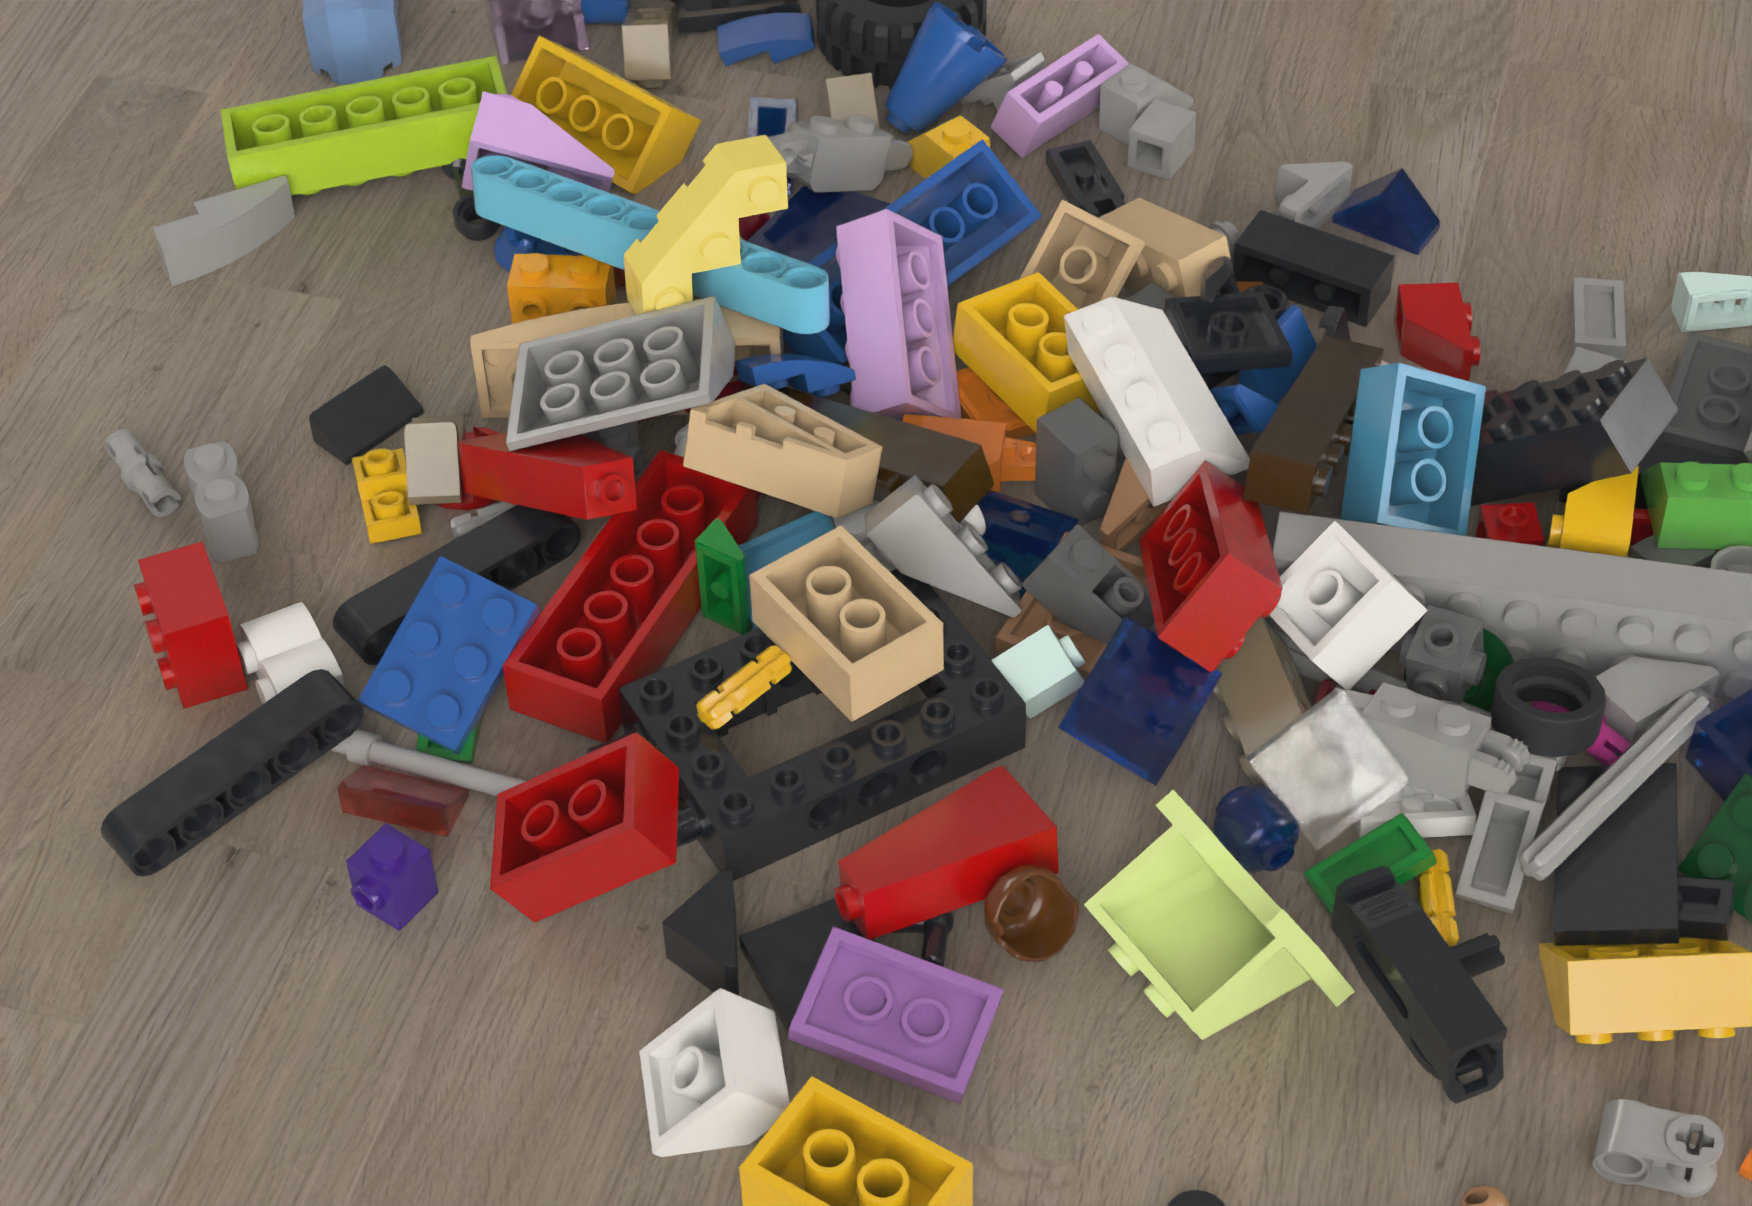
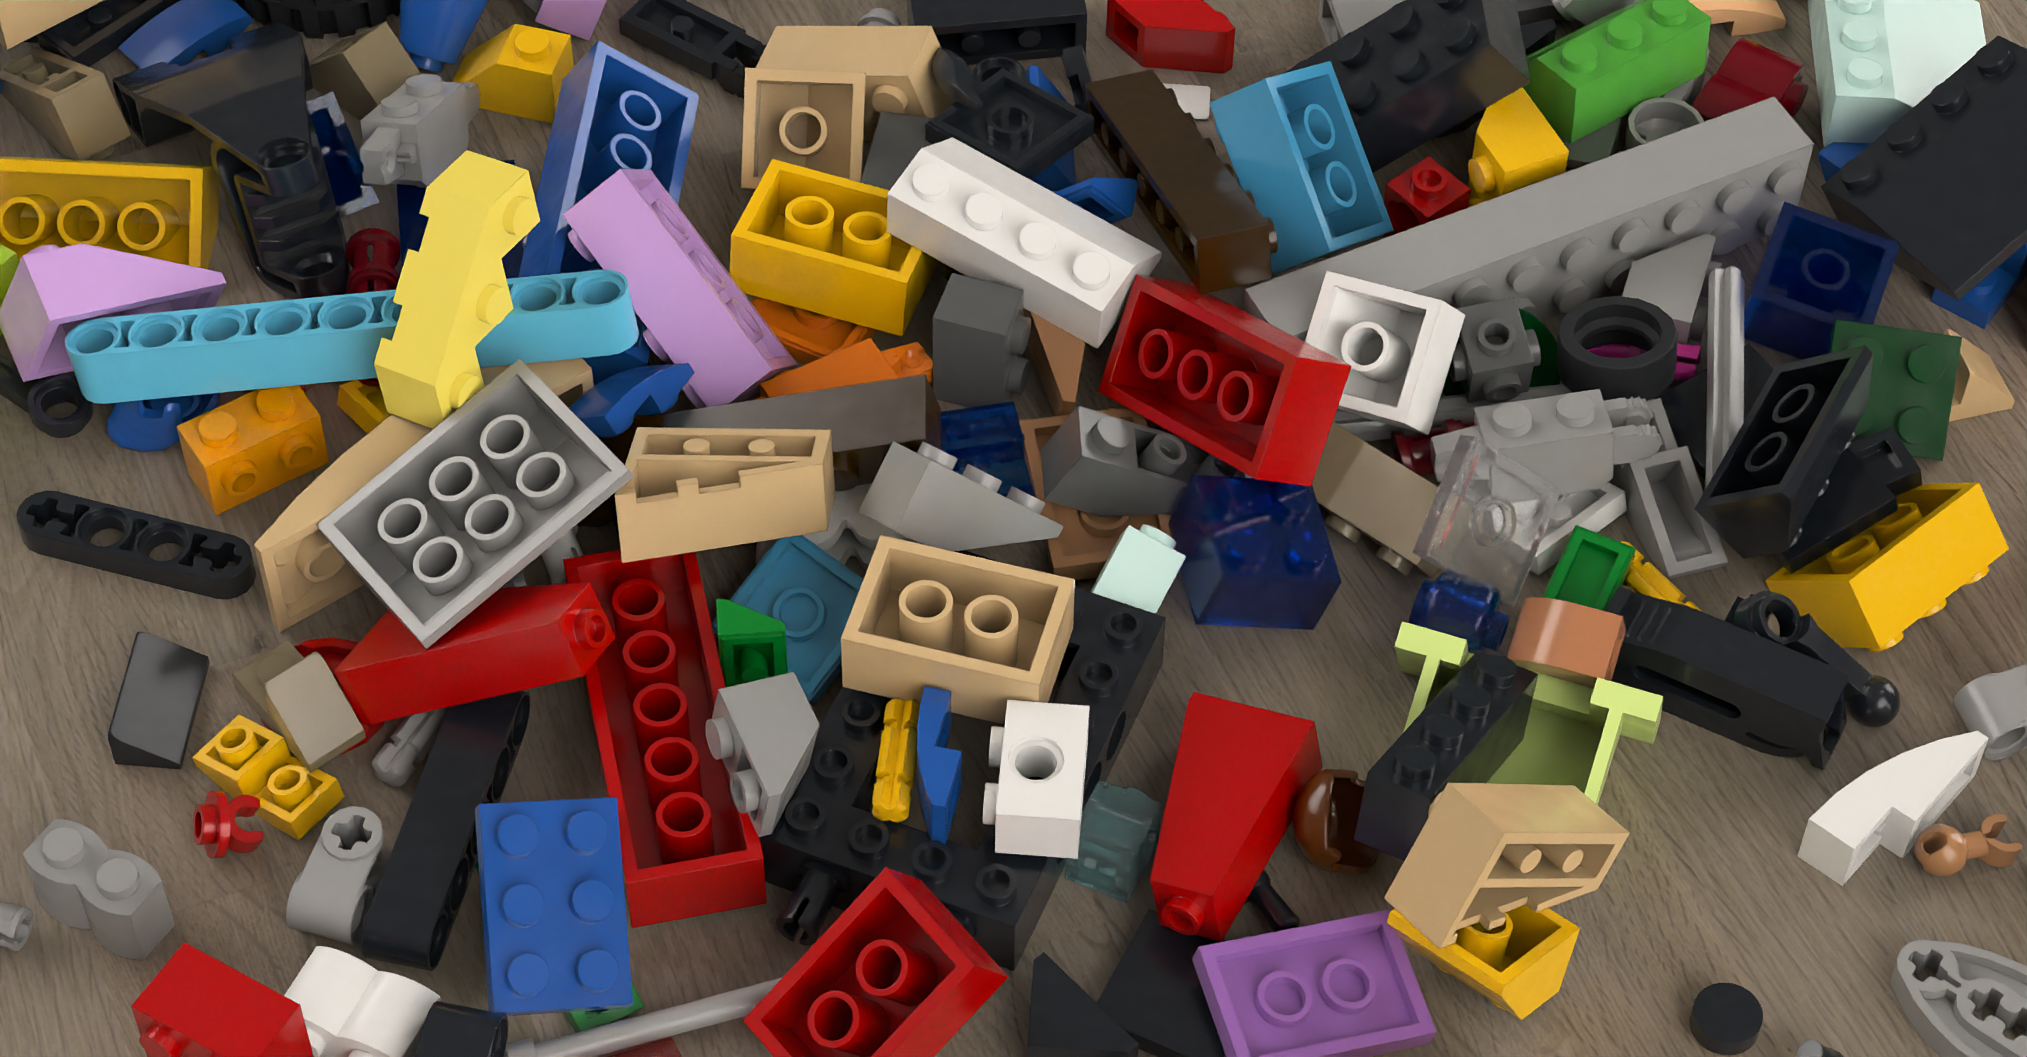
camera: 40 degrees left, 5 degrees up
(326, 501) = (216, 825): none -> red plate
(358, 567) = (340, 877): none -> light grey piece
(438, 323) = (132, 551): none -> black beam
(661, 628) = (766, 743): none -> light grey slope
(720, 92) = (261, 151): none -> black piece
(750, 708) = (937, 766): none -> blue slope
(816, 748) = (1043, 813): none -> white brick
(857, 821) = (1115, 840): none -> clear light blue brick
(1044, 1048) = (1511, 964): none -> yellow slope
(1094, 982) = (1502, 850): none -> tan wedge
(1125, 902) = (1453, 740): none -> black brick
(1299, 882) = (1567, 640): none -> nougat brick
(1476, 1150) = (1890, 805): none -> white slope
(1539, 1072) = (1869, 697): none -> black piece
(1604, 844) = (1787, 451): none -> black slope

